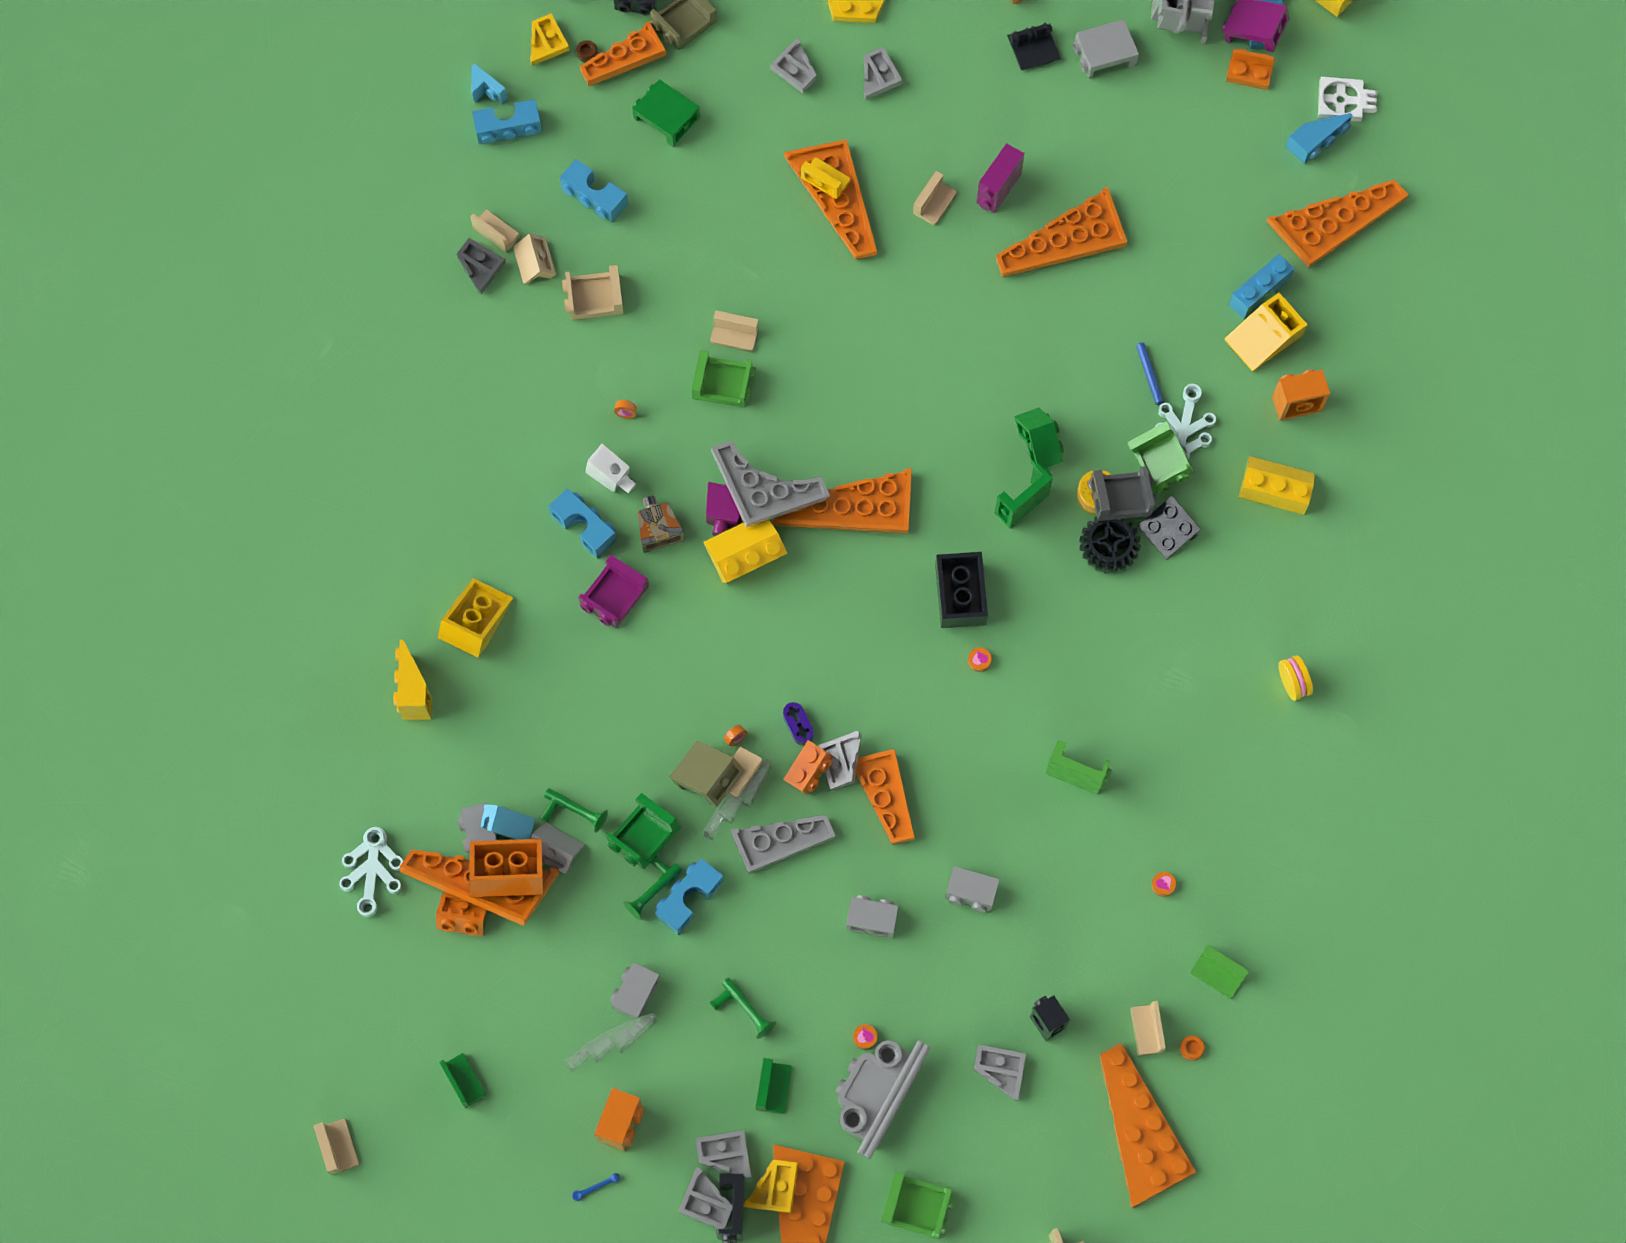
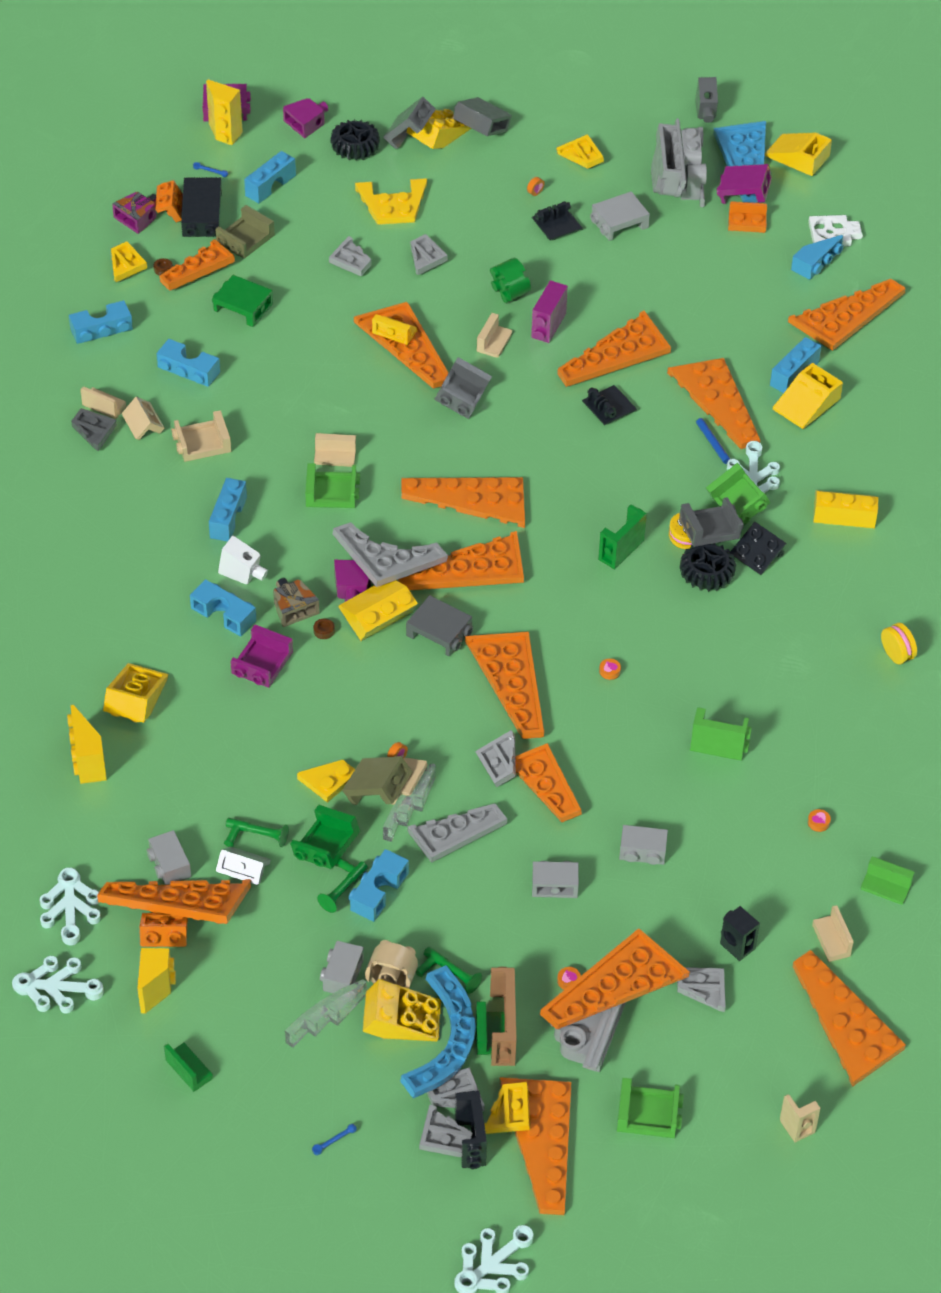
camera: 10 degrees left, 20 degrees down
(336, 1146) = (72, 1139): tan panel -> none
(342, 964) = (55, 984): none -> light aqua plant
(441, 978) = (155, 977): none -> yellow slope
(484, 83) = (78, 297): medium azure slope -> none
(506, 867) = (202, 876): orange brick -> none
(507, 822) = (196, 841): medium azure hinge -> none
(610, 385) = (230, 500): none -> dark azure arch
(619, 1120) = (348, 1071): orange brick -> none
(625, 409) = (247, 518): orange tile -> none
(659, 754) = (327, 779): none -> yellow wing
(684, 1002) = (392, 964): none -> tan brick
(685, 562) = (324, 628): none -> reddish brown tile
(686, 1054) = (401, 1013): none -> yellow slope
(741, 1093) = (461, 1036): none -> dark azure plate
(785, 1117) = (504, 1044): none -> medium nougat panel
(802, 721) = (456, 736): dark purple beam -> none
(808, 579) = (440, 624): none -> dark grey panel
(808, 768) = (470, 768): orange bracket -> none
(871, 644) = (511, 673): none -> orange wing
(881, 413) = (478, 497): none -> orange wing
(886, 269) = (463, 388): none -> dark grey panel
(917, 1056) = (622, 975): none -> orange wing
(961, 589) = (582, 614): black brick -> none
(965, 126) = (510, 280): none -> green brick
(1041, 437) = (627, 489): green brick -> none
(1044, 309) = (608, 404): none -> black hinge
(1166, 310) = (717, 395): none -> orange wing
(1192, 1047) = (877, 947): orange tile -> none
(1300, 394) = (850, 435): orange brick -> none

